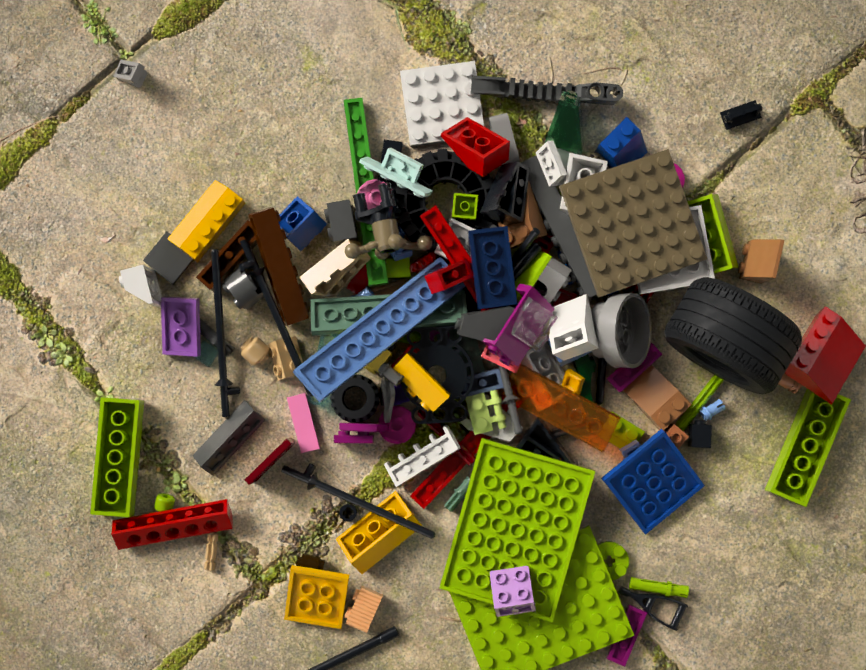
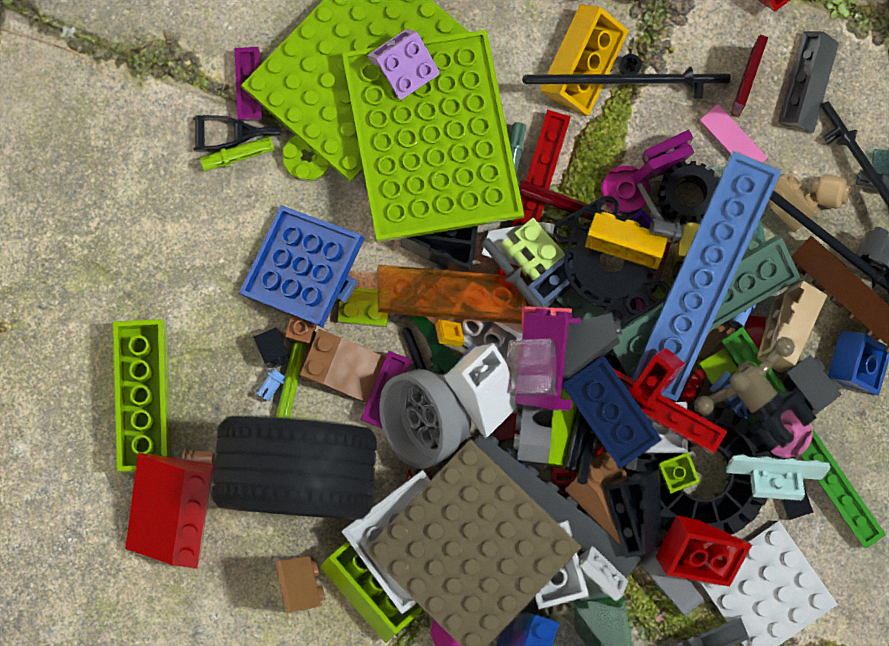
camera: 160 degrees right, 5 degrees down
(423, 458) = (577, 164): white hinge -> none

